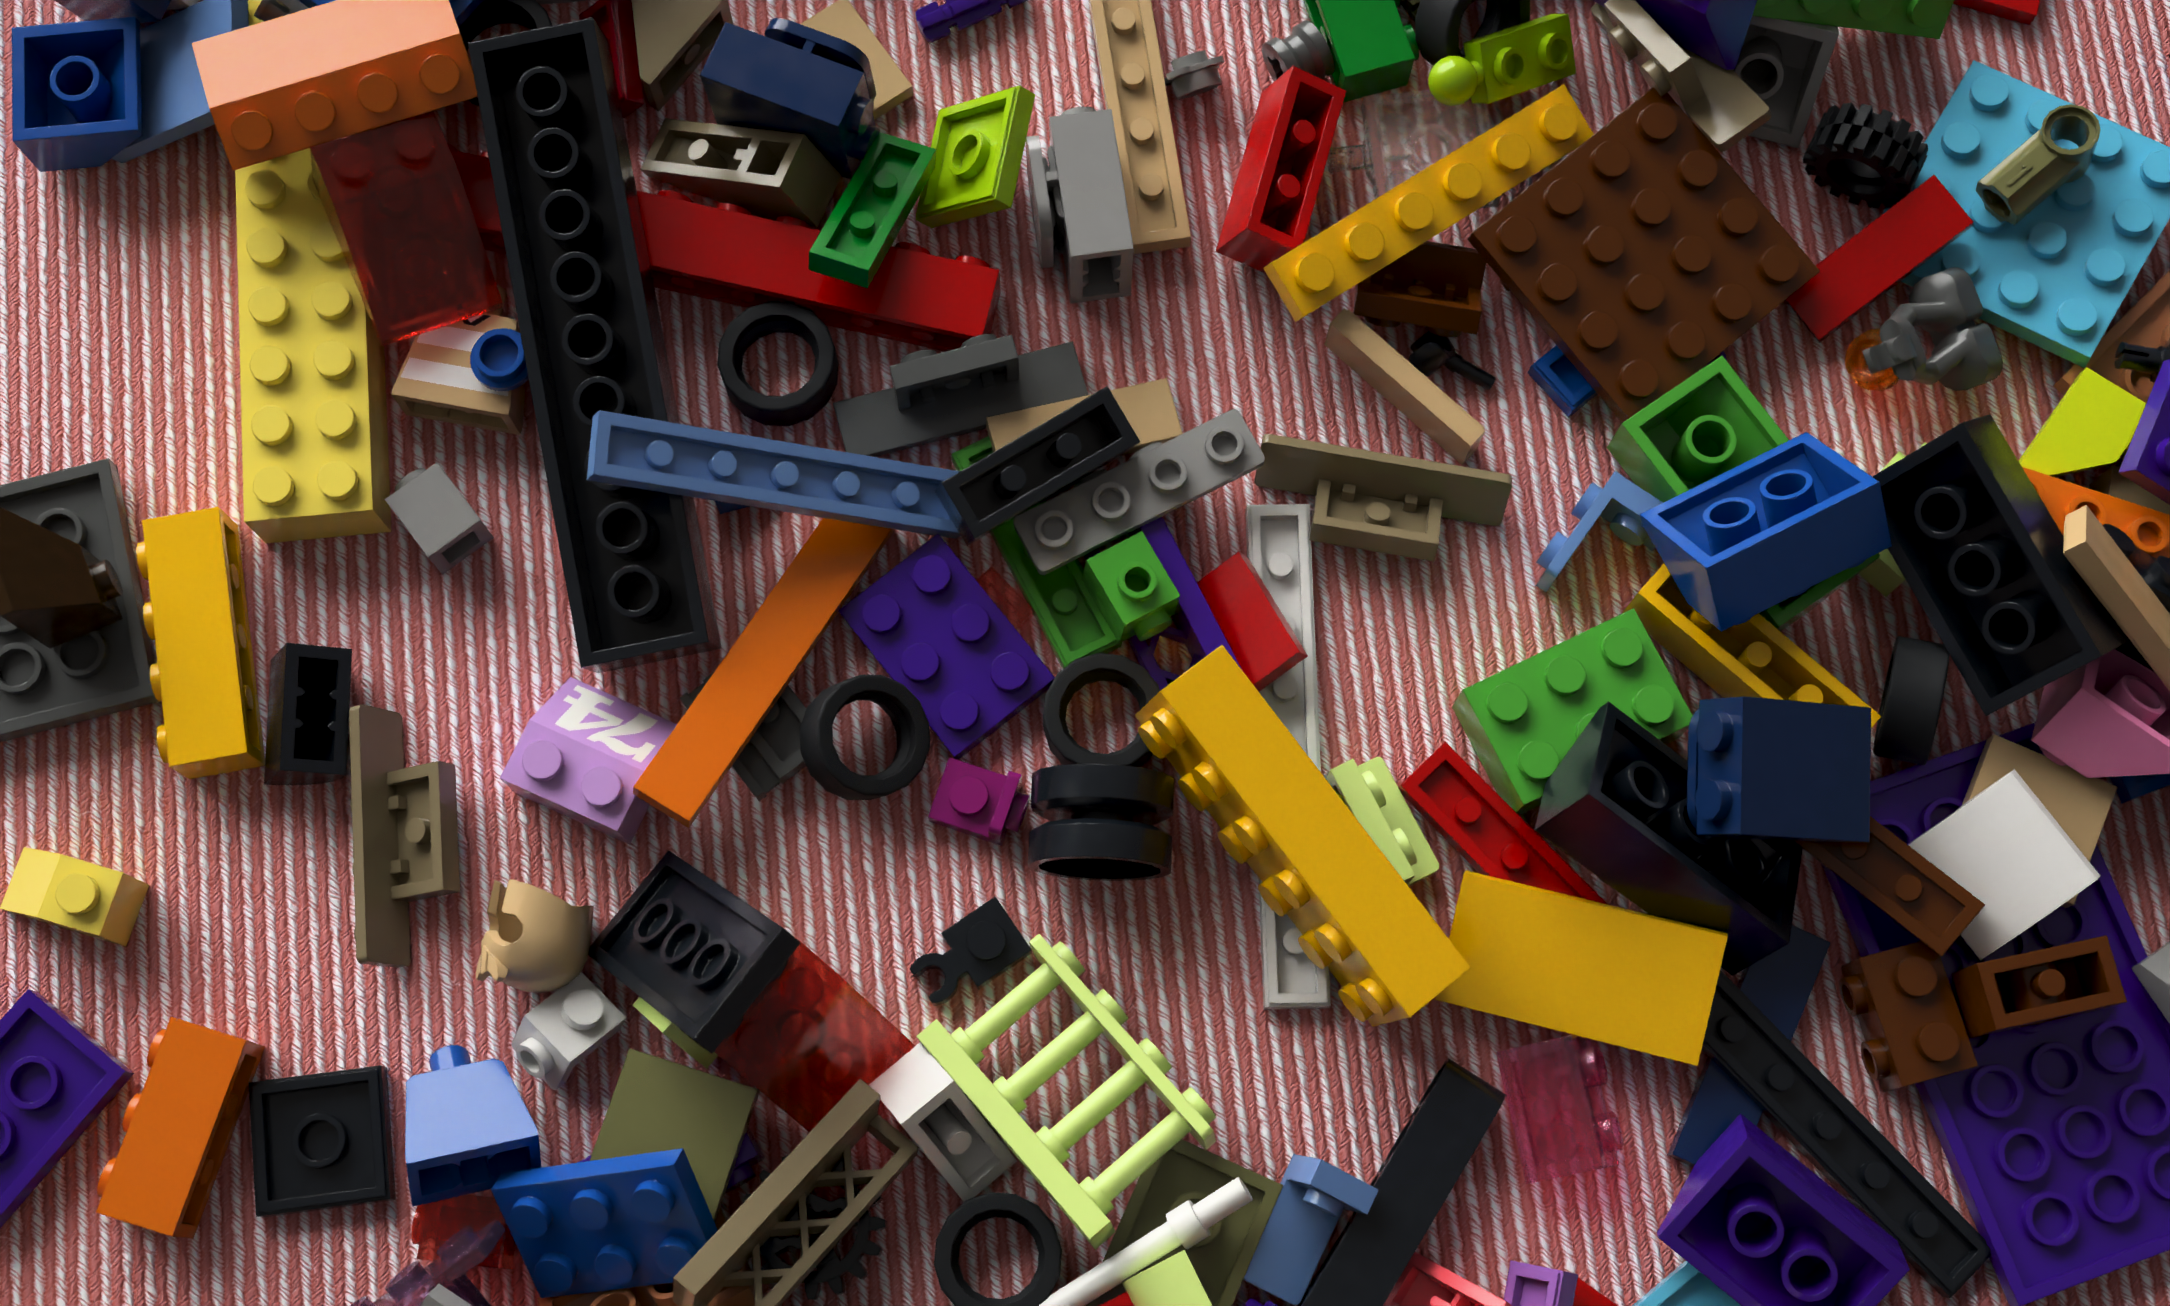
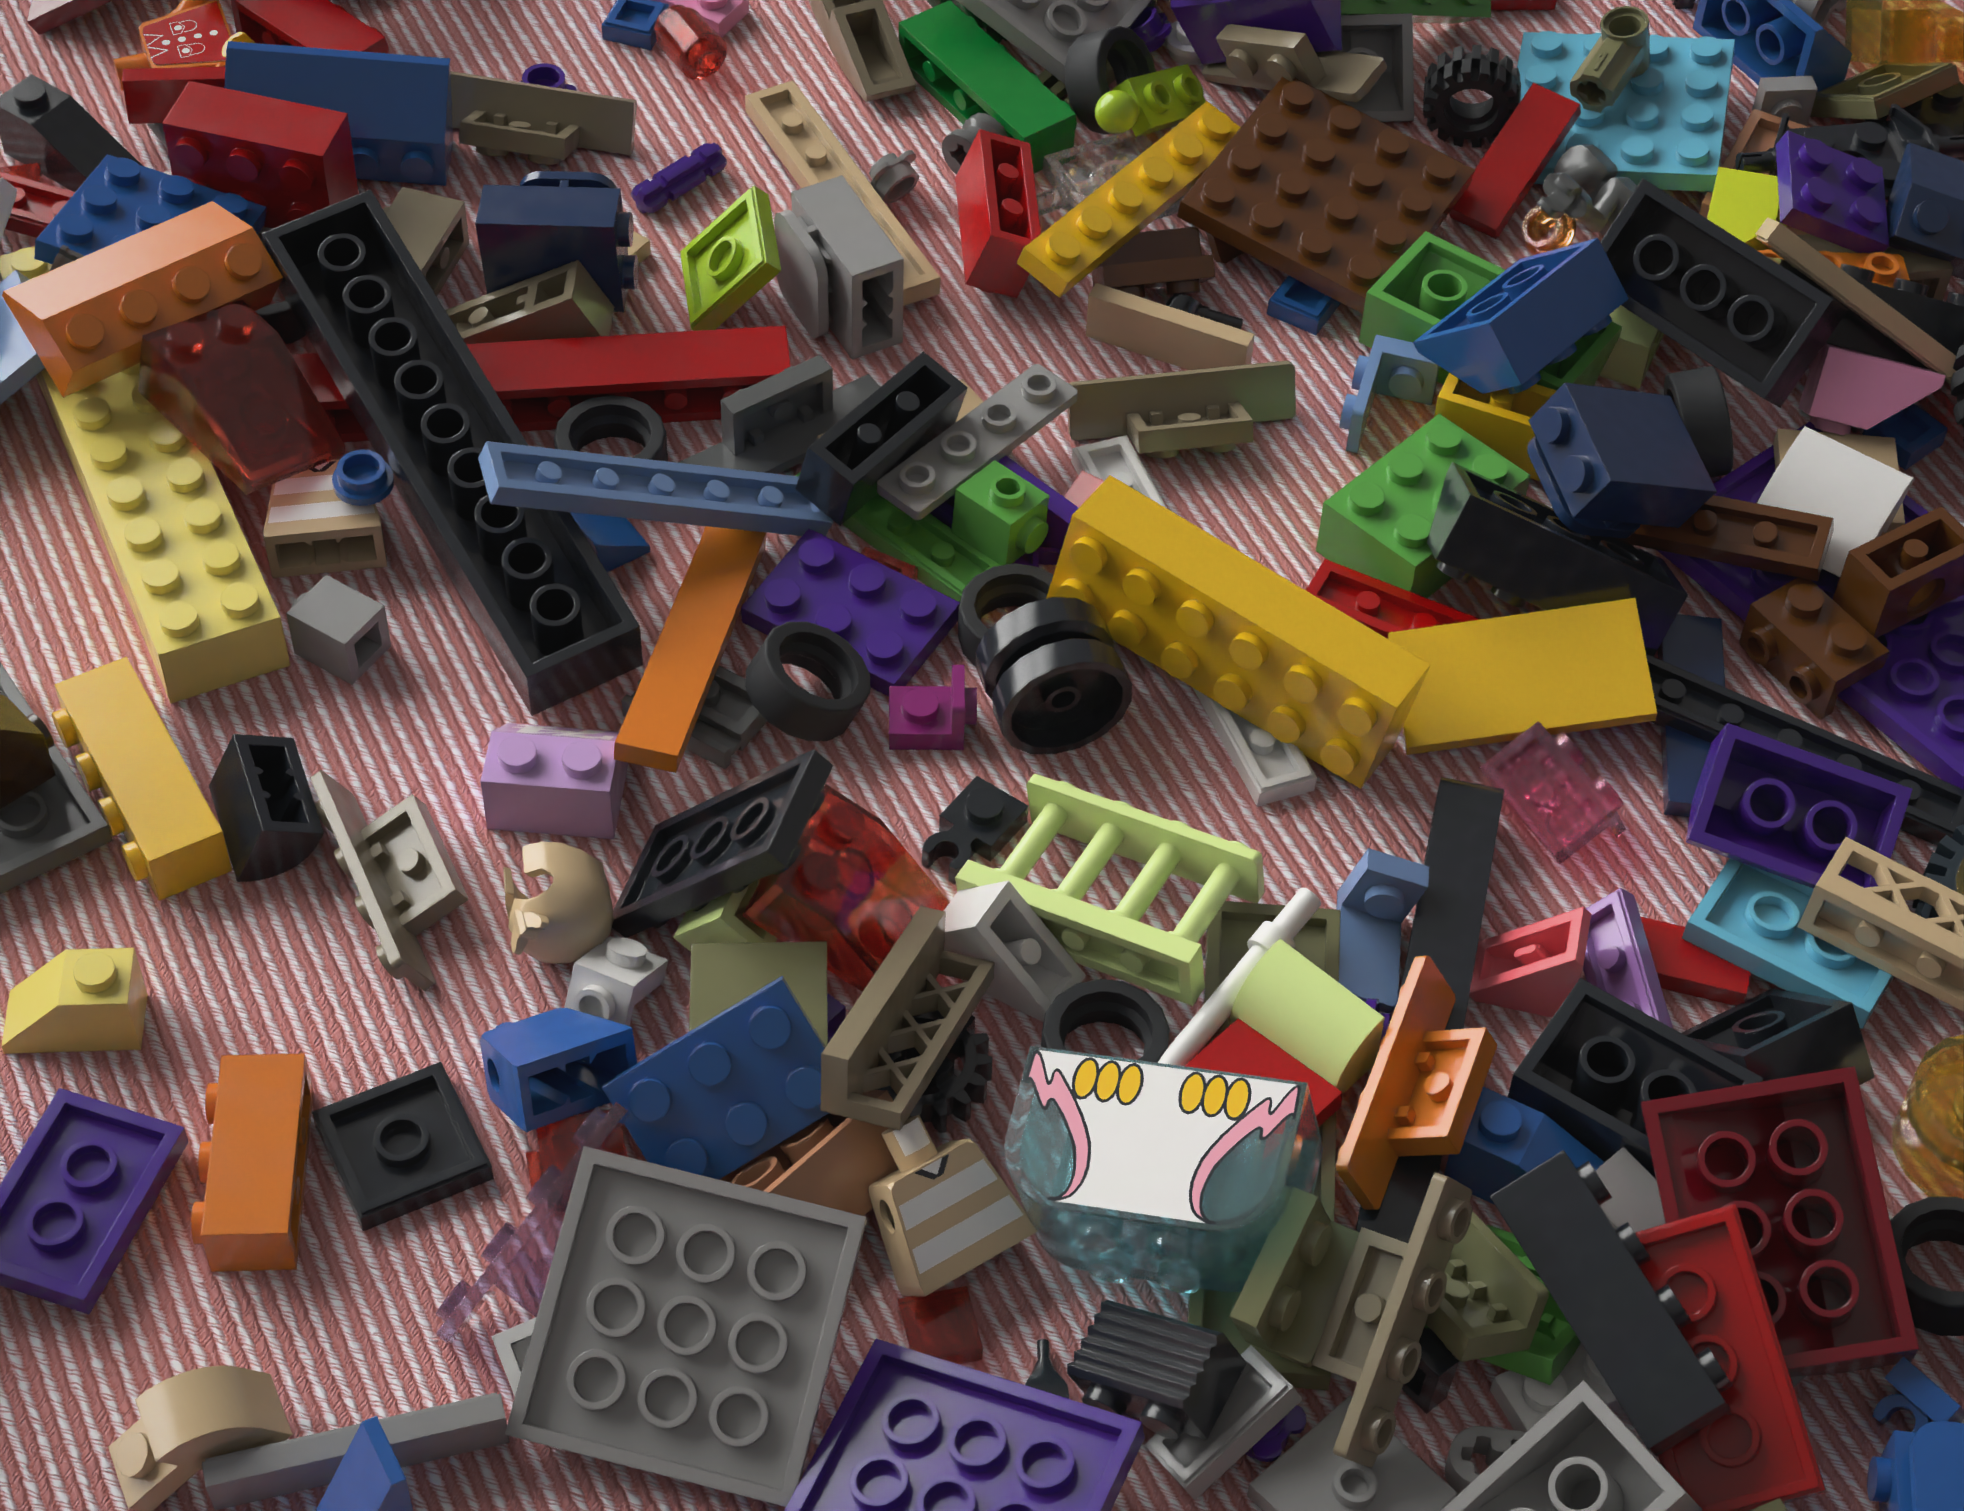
camera: 20 degrees left, 25 degrees down
(872, 210) = (657, 306): green plate -> none

